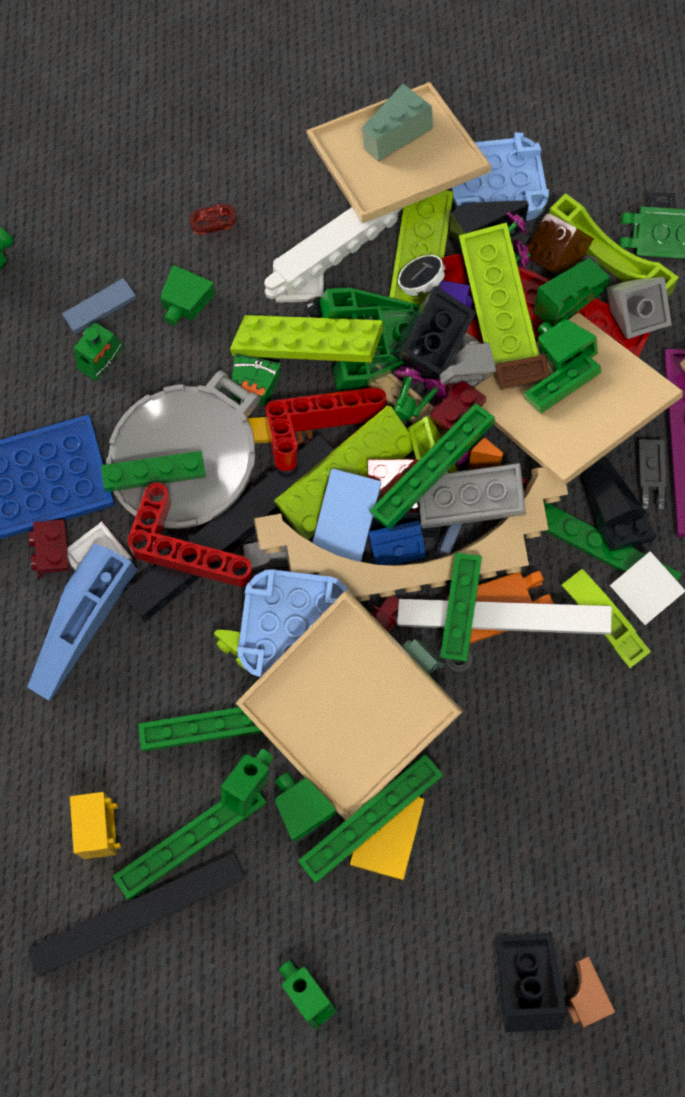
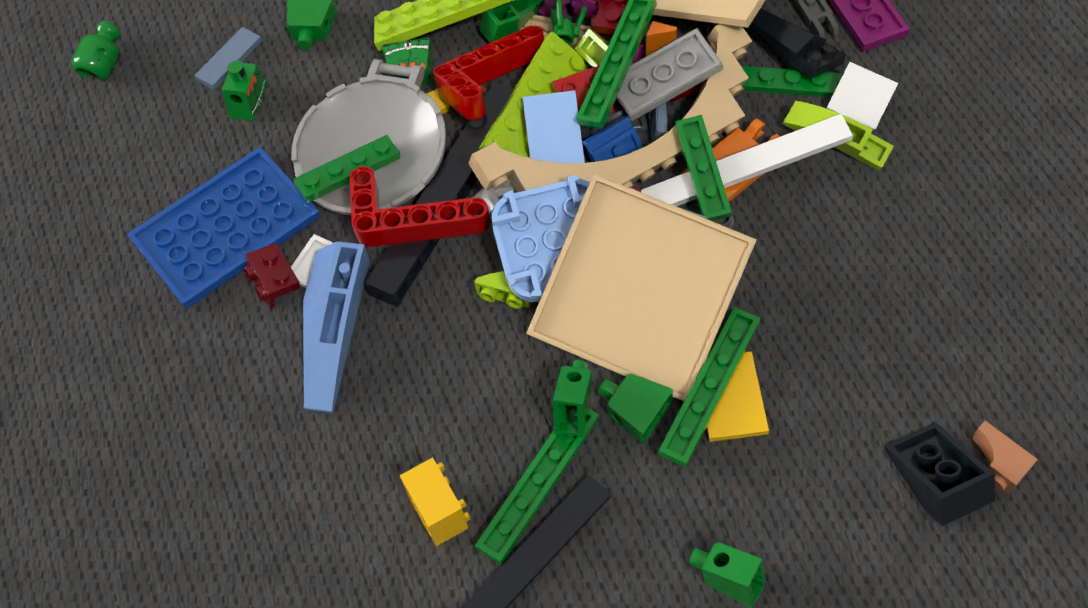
camera: 20 degrees left, 10 degrees down
(195, 729) = (497, 377): green plate -> none

